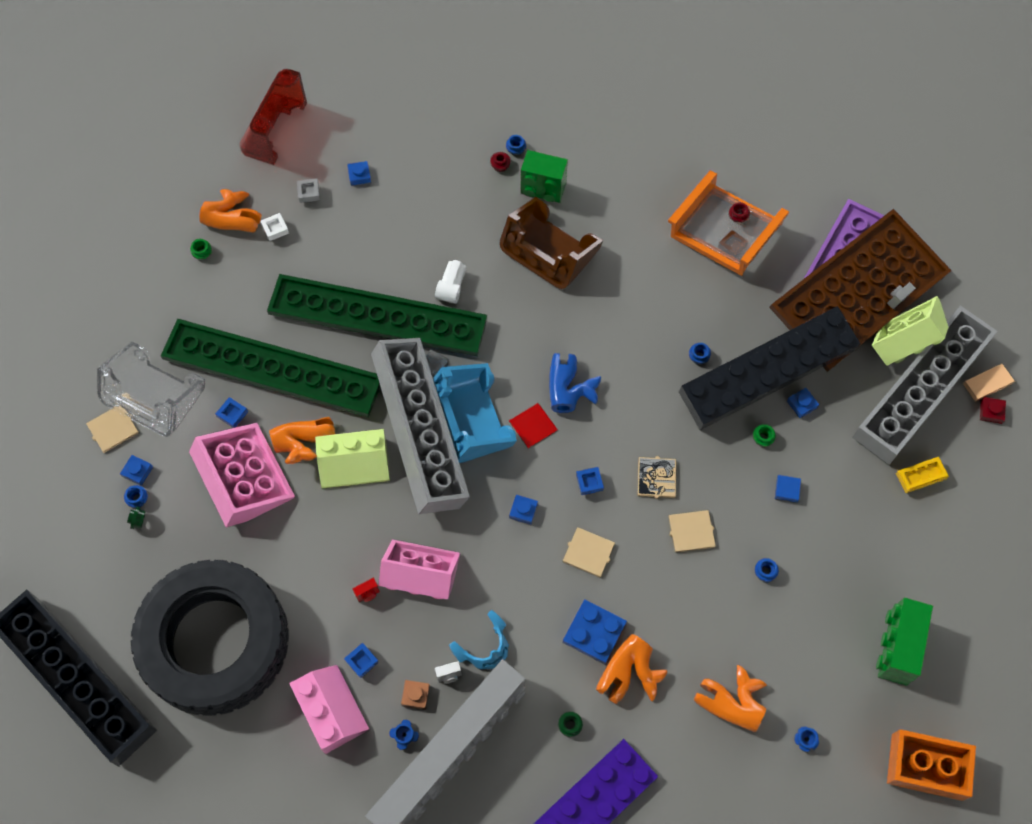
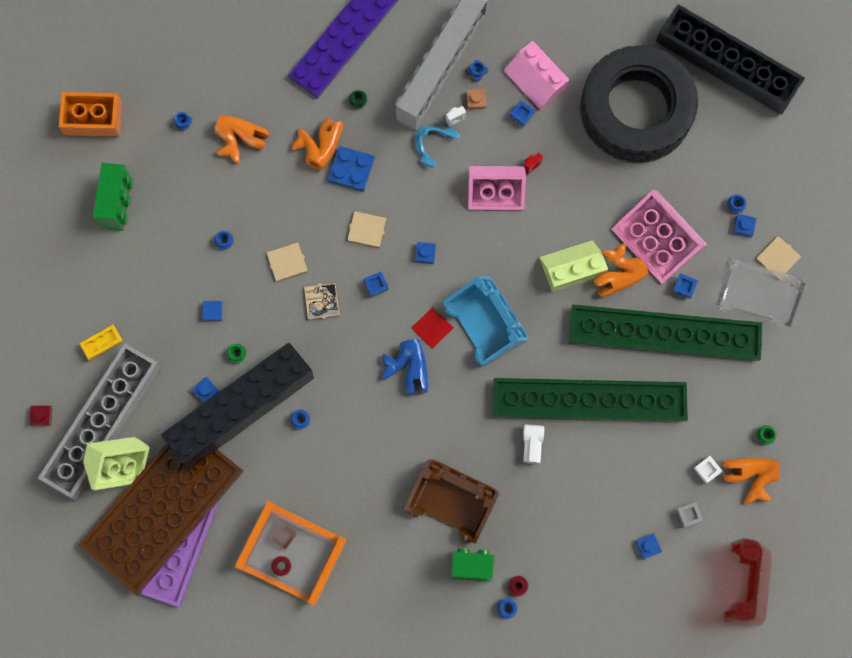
camera: 165 degrees right, 10 degrees up
(136, 518) = (729, 185): dark green plate -> none
(419, 426) = (526, 299): light grey brick -> none
(436, 361) = (528, 365): clear tile -> none
(900, 294) = (125, 501): light grey plate -> none
(988, 382) = (43, 441): light nougat tile -> none

